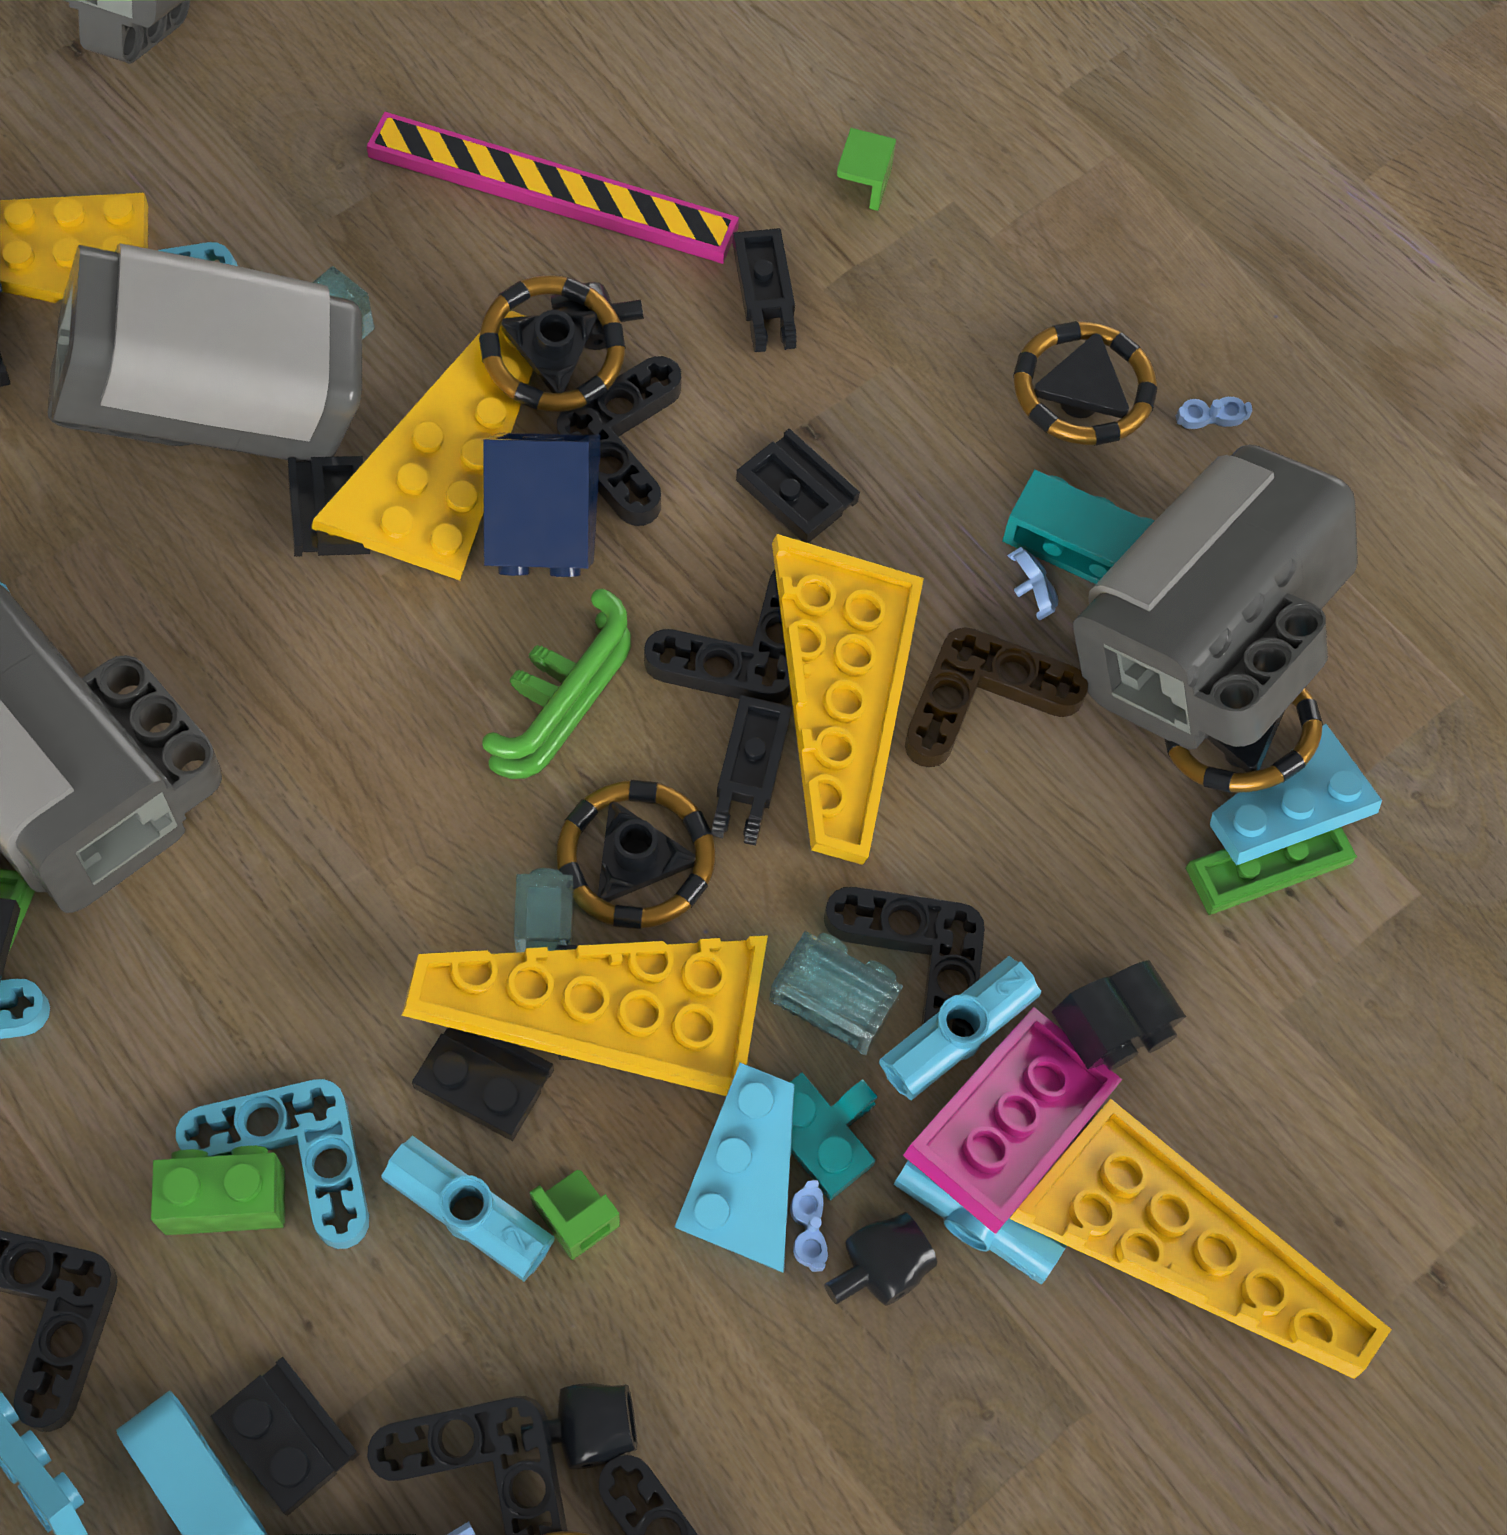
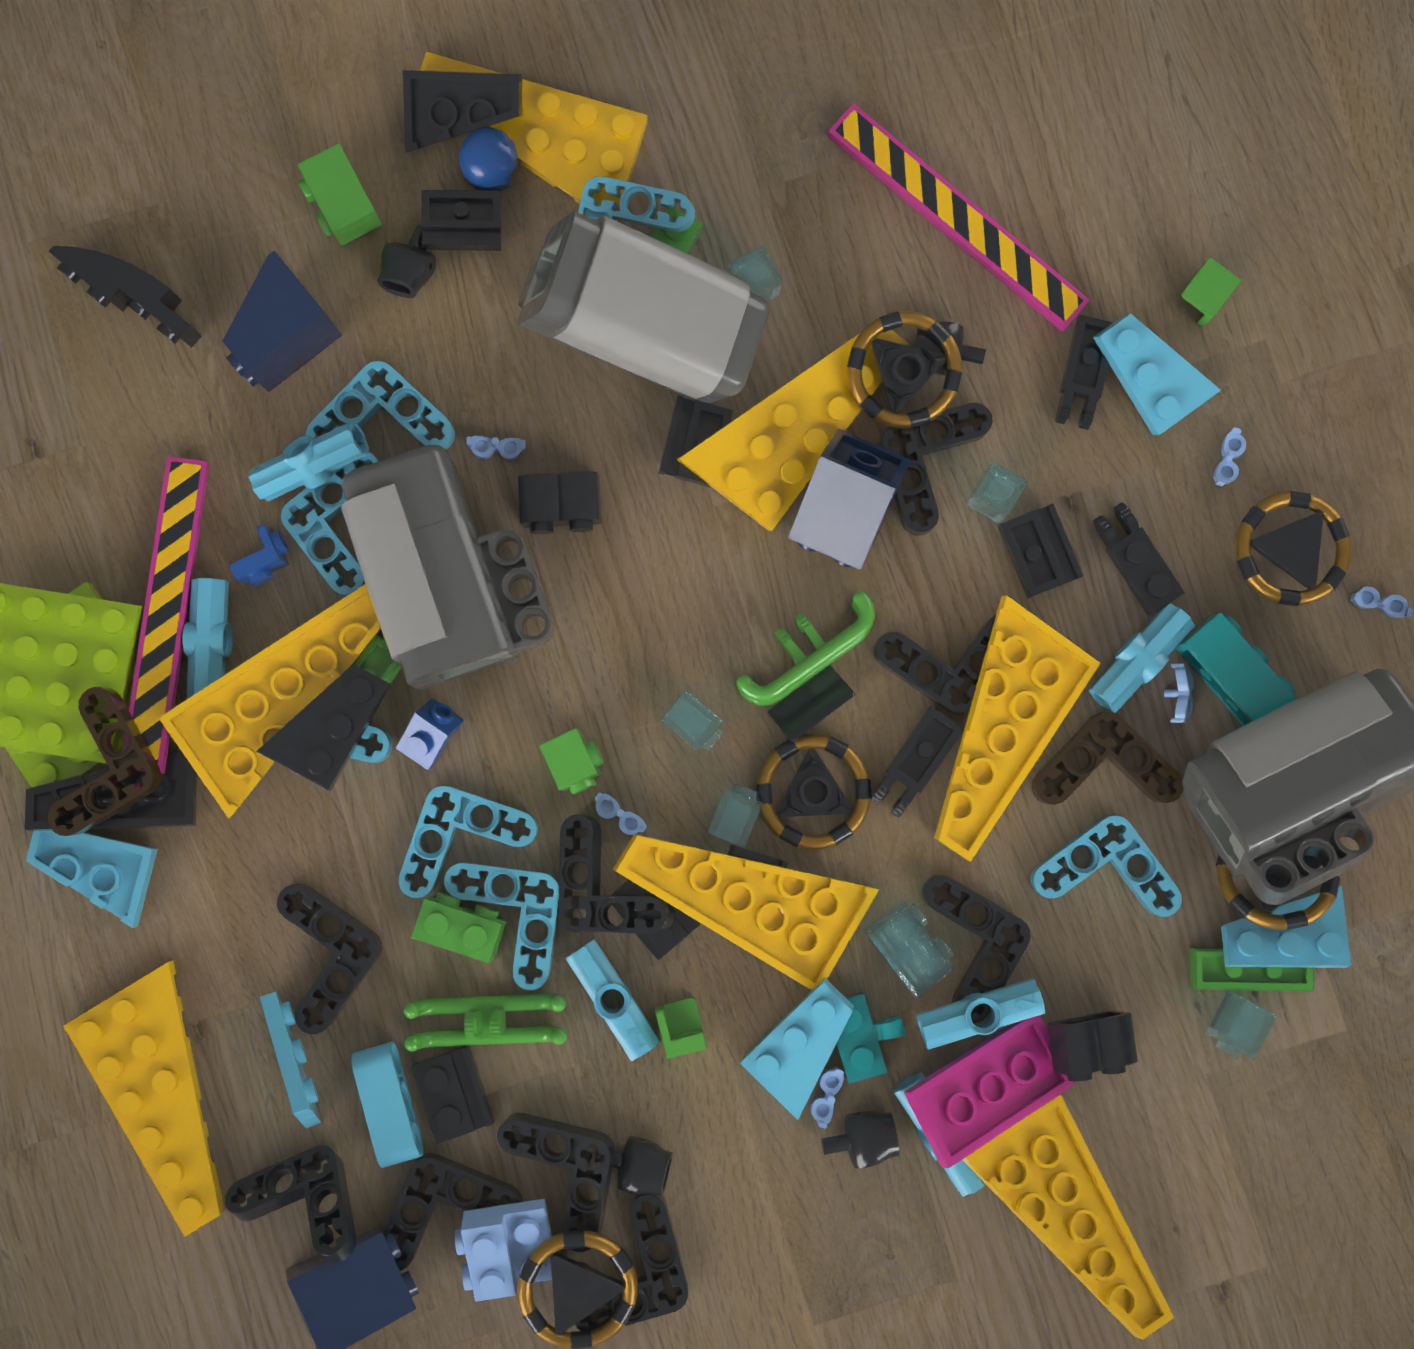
camera: 25 degrees right, 20 degrees up
(61, 603) = (484, 447): none -> light blue piece
(93, 963) = (429, 733): none -> bracket
(173, 1057) = (458, 818): none -> medium azure beam
(179, 624) = (560, 500): none -> black brick
(299, 1311) = (485, 1020): none -> bright green piece
(300, 912) = (573, 761): none -> bright green brick
(374, 971) = (628, 822): none -> light blue piece
(400, 1087) = (594, 903): none -> black beam
(445, 821) = (693, 722): none -> clear light blue brick
(591, 751) = (811, 703): none -> black slope
(717, 438) = (996, 493): none -> clear light blue brick
(842, 263) = (1153, 374): none -> medium azure wing
(916, 460) = (1138, 561): none -> black hinge
(968, 558) = (1141, 657): none -> medium azure piece
(969, 317) = (1232, 448): none -> light blue piece
(1044, 788) = (1118, 855): none -> medium azure beam
(1290, 927) = (1240, 1026): none -> clear light blue brick

